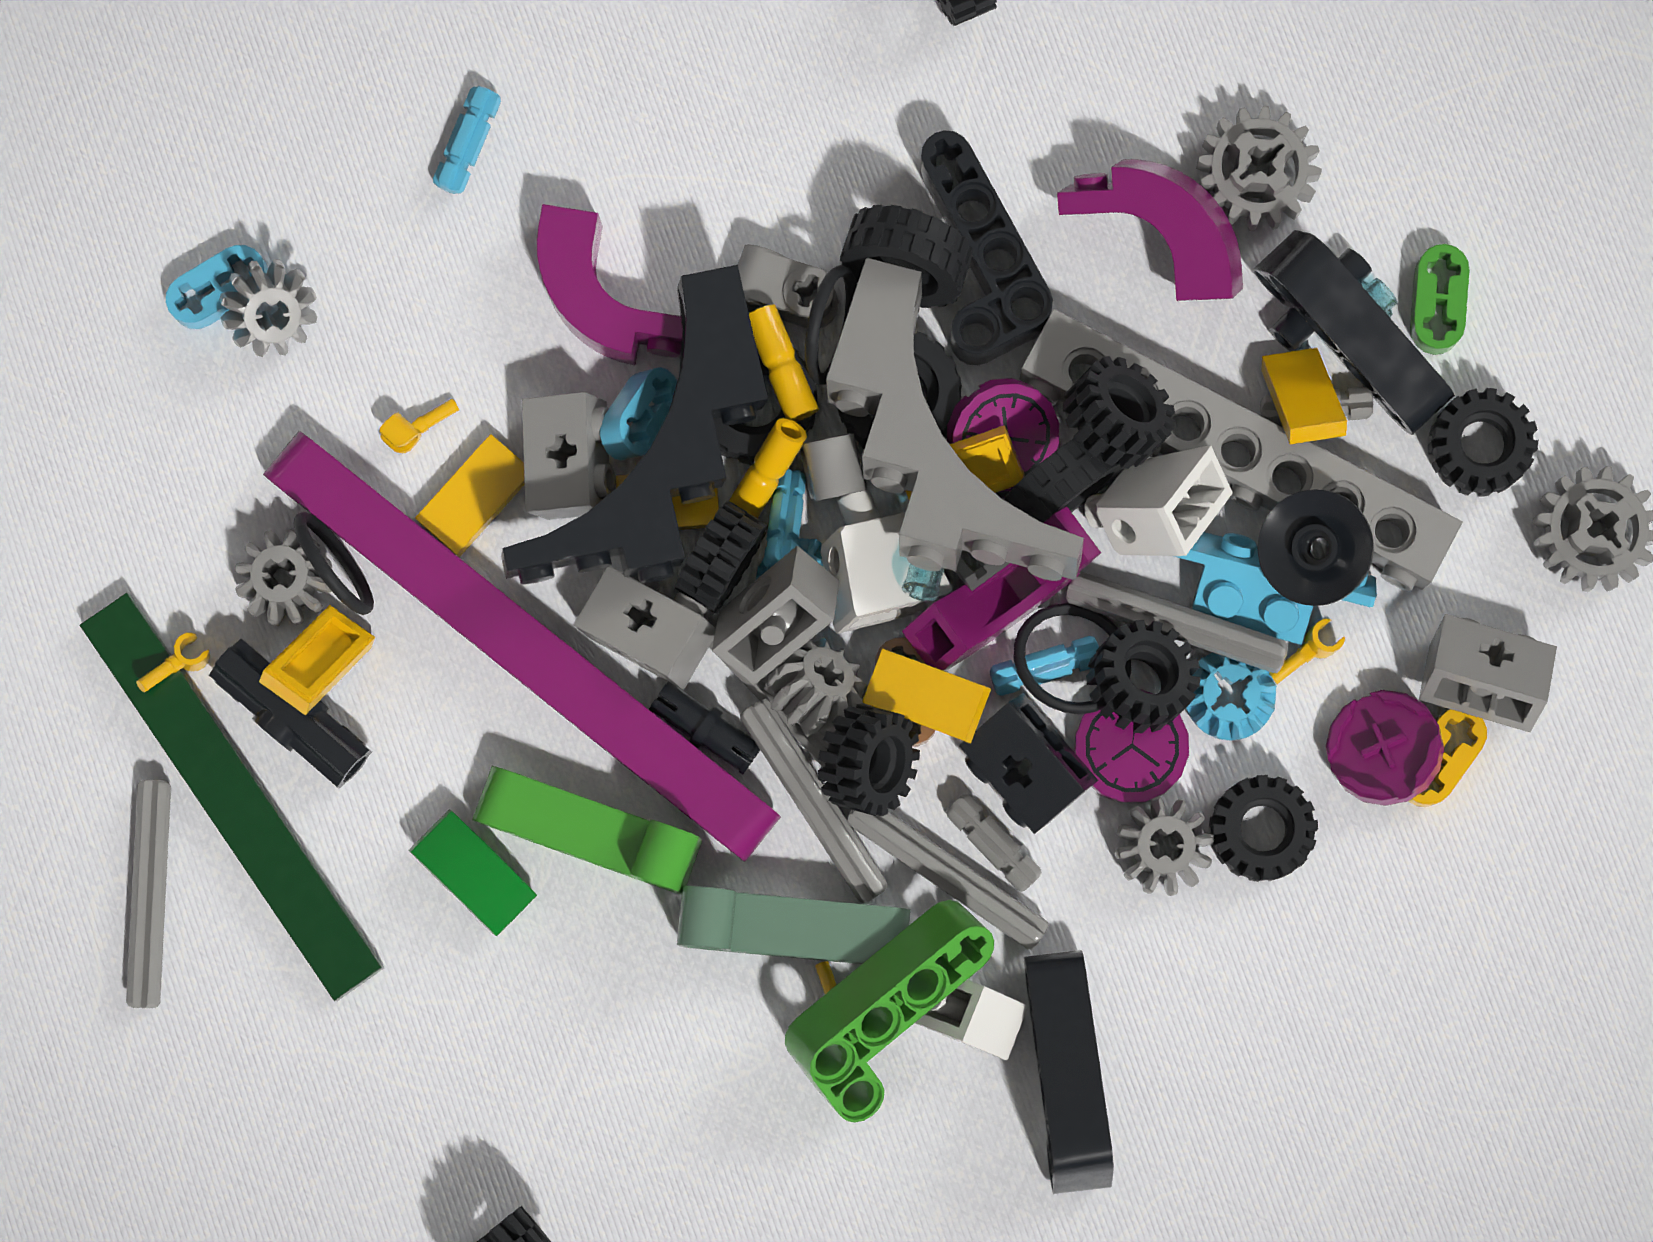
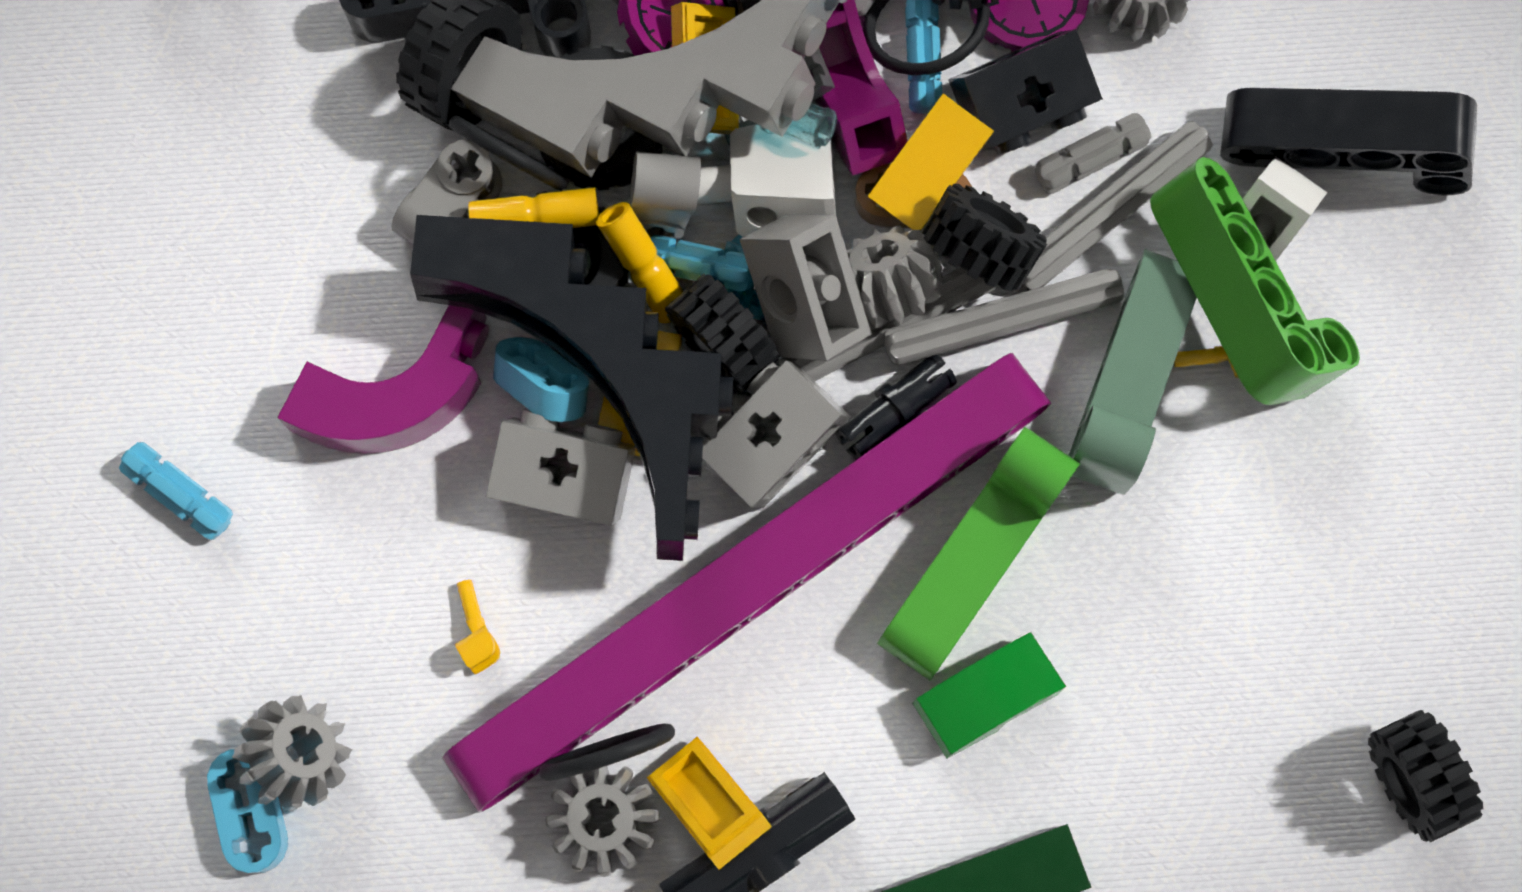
camera: 80 degrees left, 5 degrees down
(473, 496) = (571, 585): yellow tile -> none

